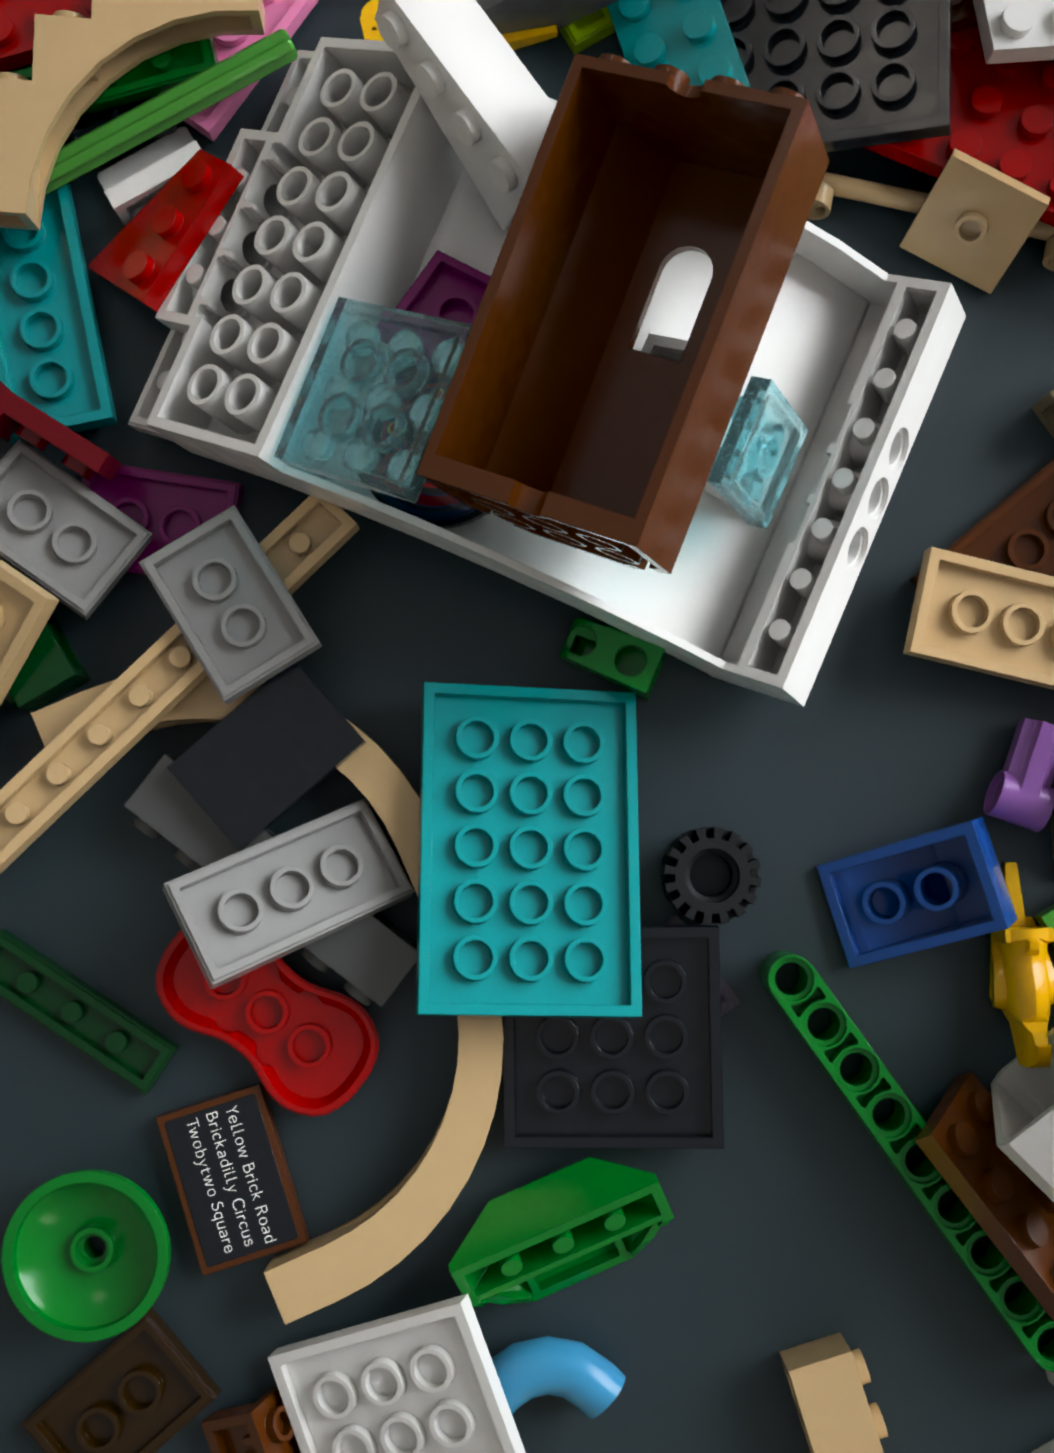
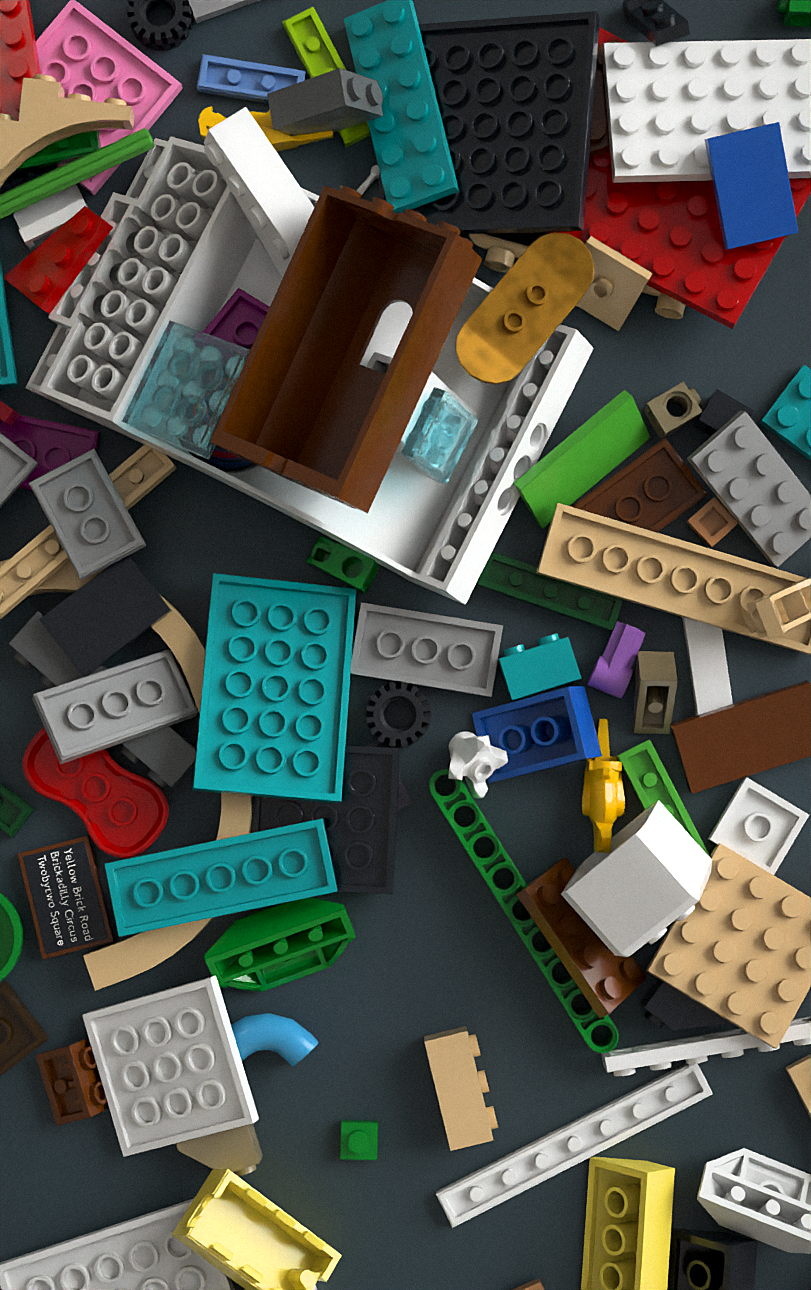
camera: 10 degrees right, 0 degrees up
(465, 1143) = (221, 877): none -> teal plate
(746, 776) = (426, 649): none -> light grey plate
(831, 938) = (475, 760): none -> white rock
(872, 254) = (524, 308): none -> pearl gold piece
(883, 670) = (522, 583): none -> dark green plate
(915, 794) = (539, 667): none -> teal brick
(961, 479) = (583, 458): none -> bright green tile

